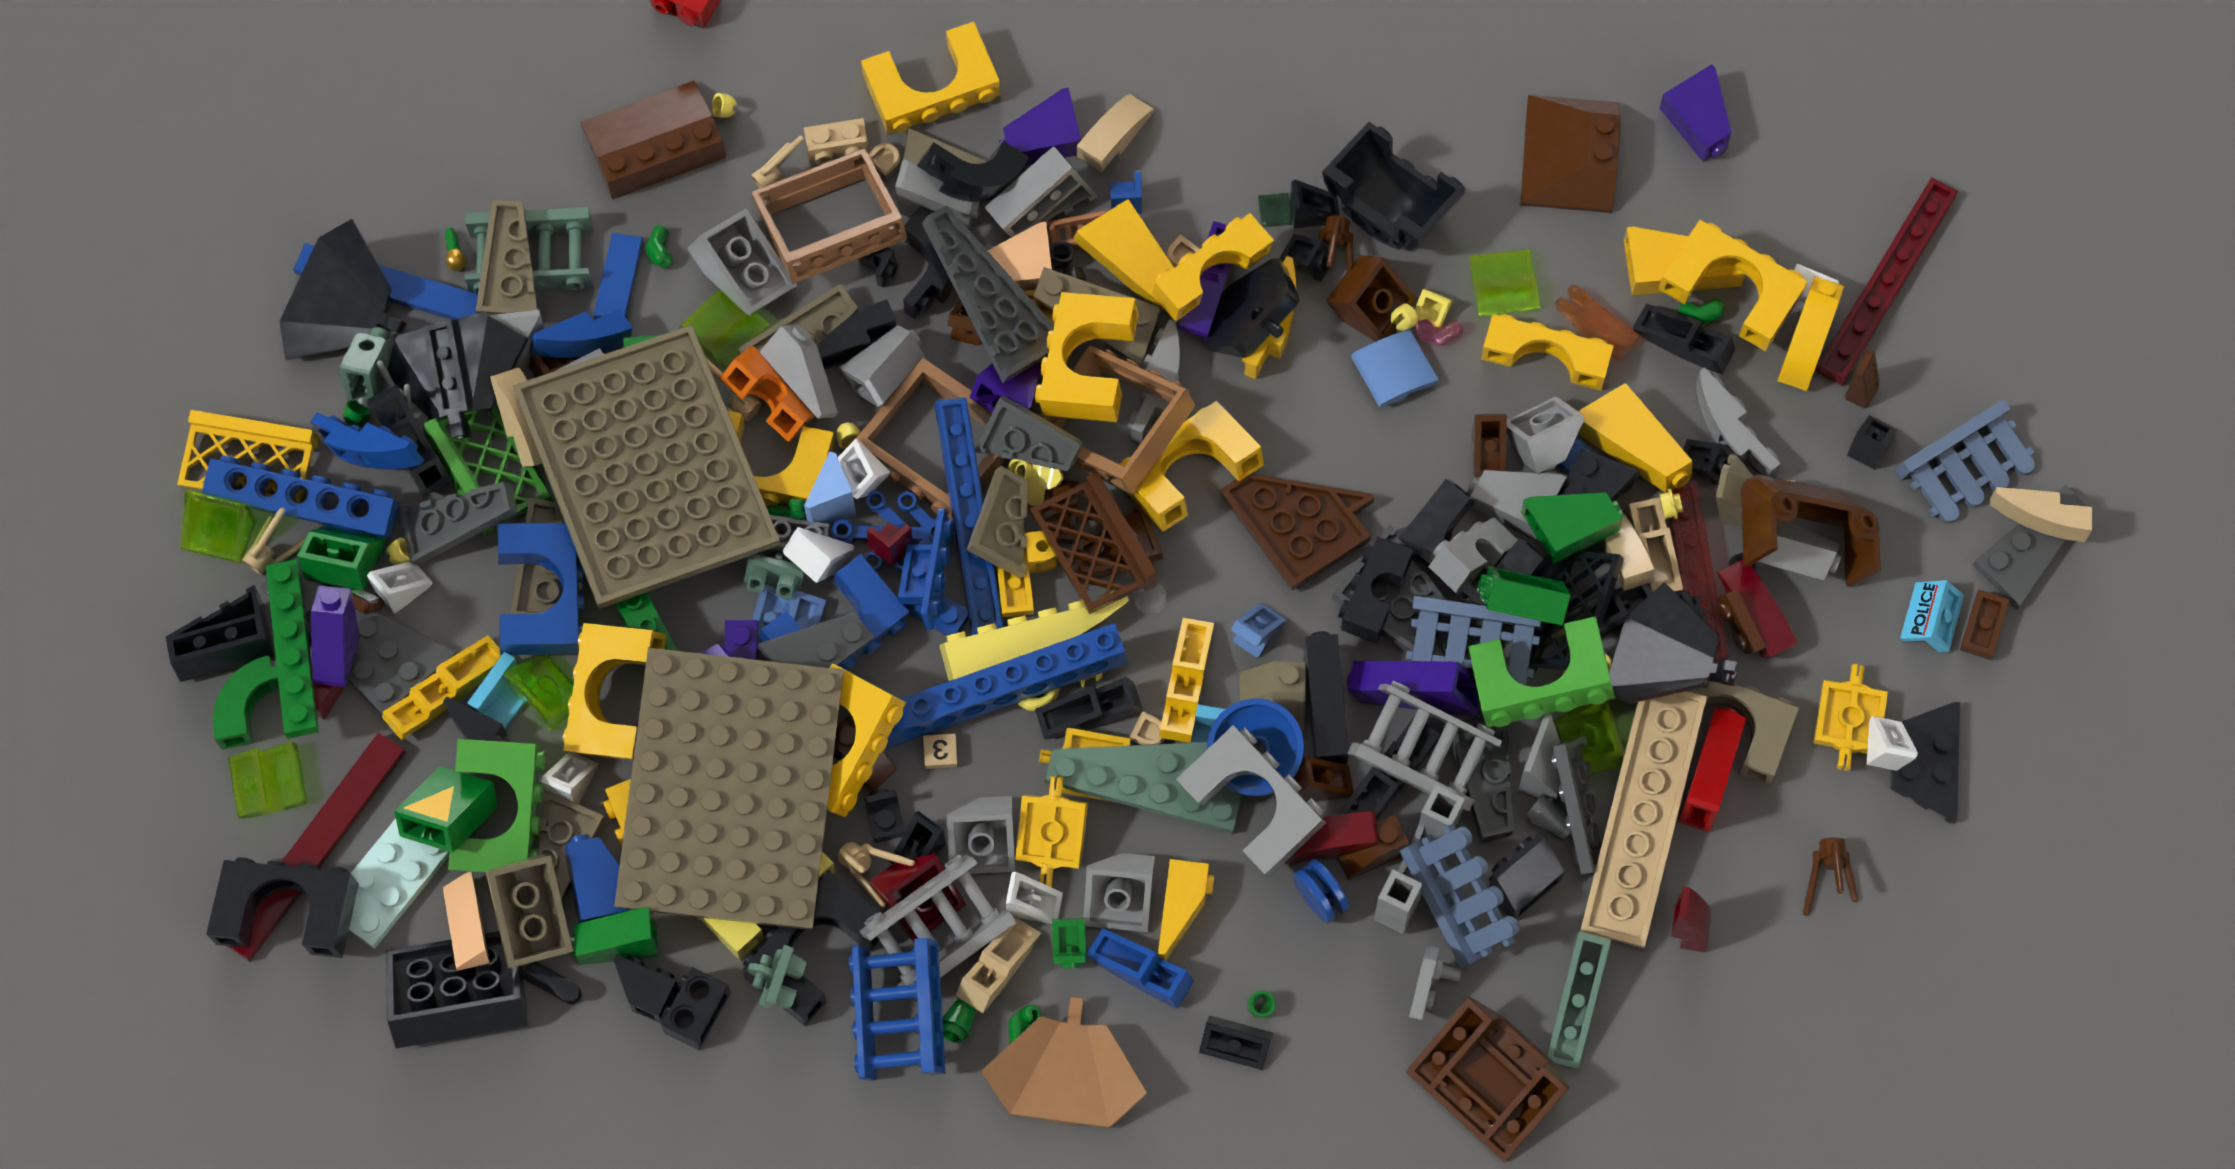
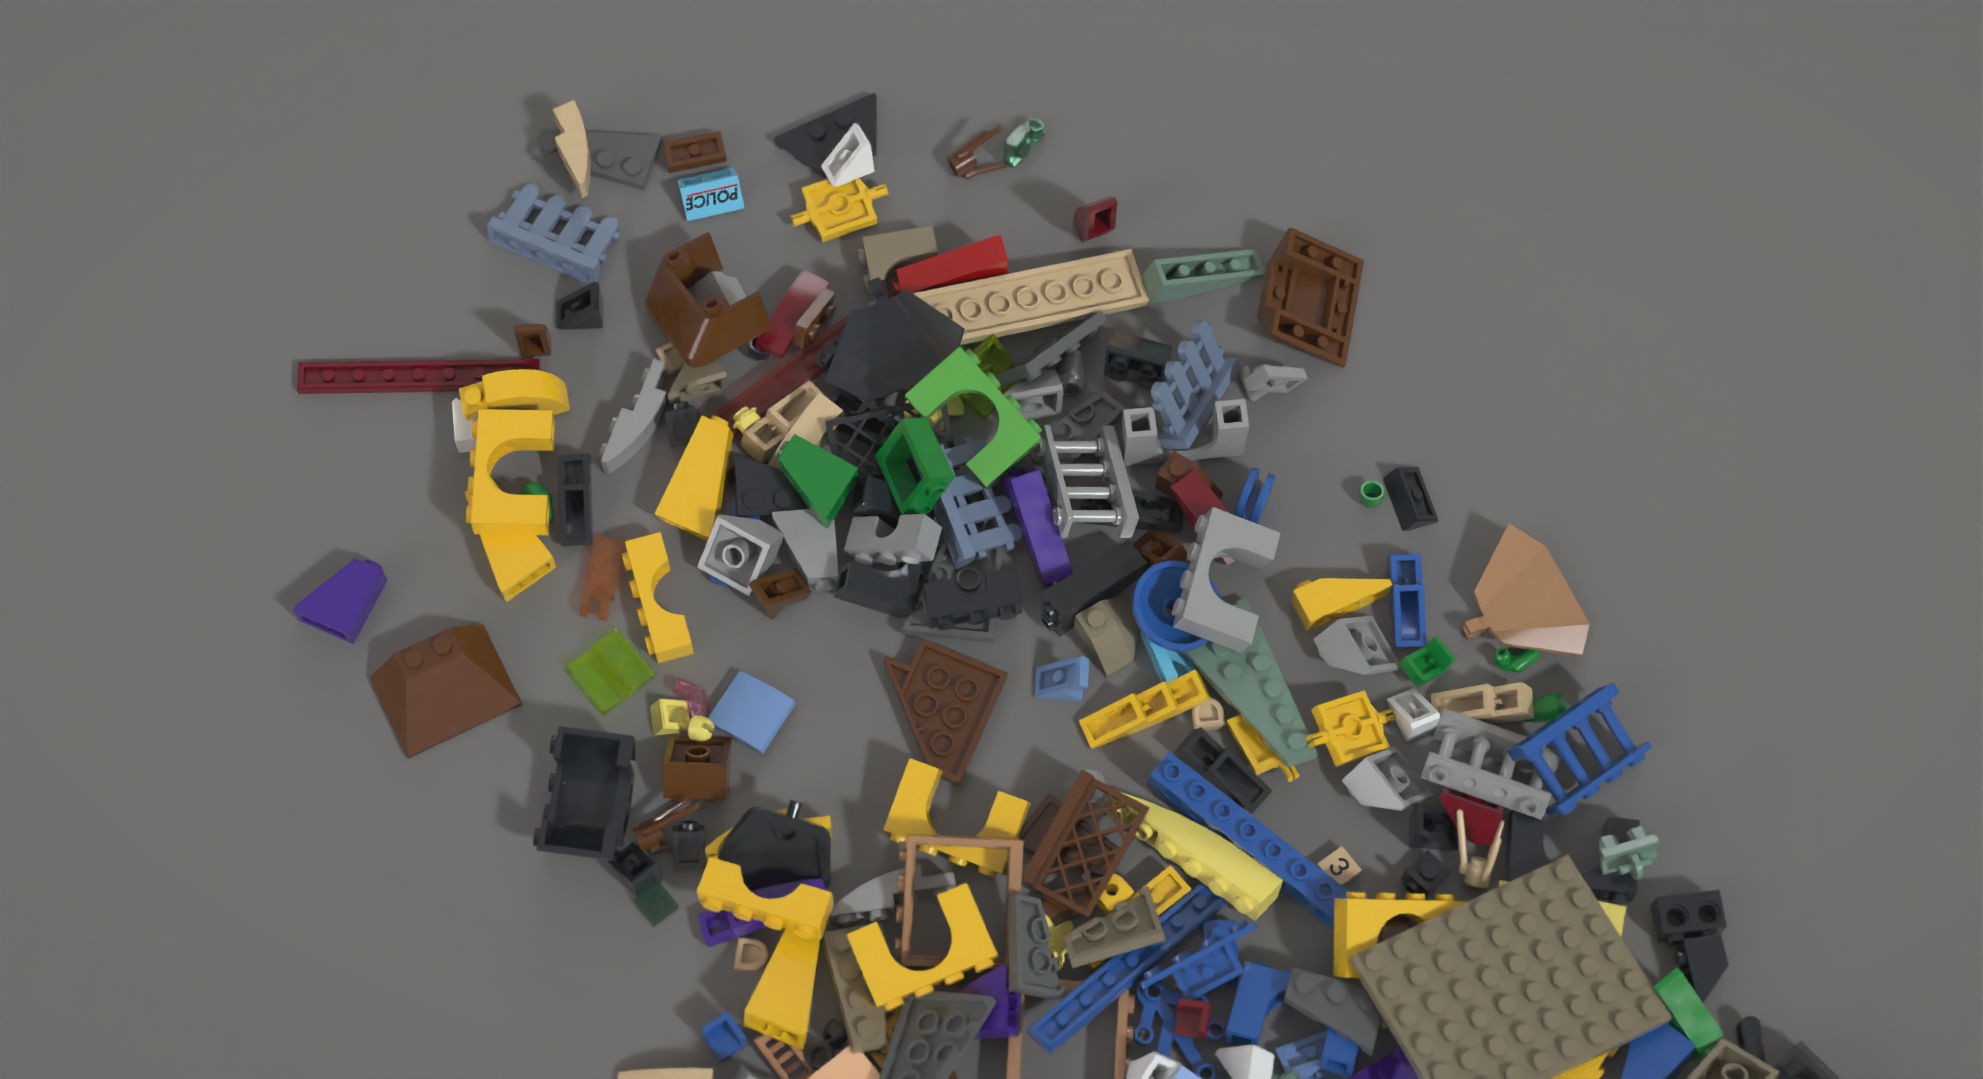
camera: 125 degrees left, 0 degrees up
(1820, 913) = (1018, 143): none -> clear green plate

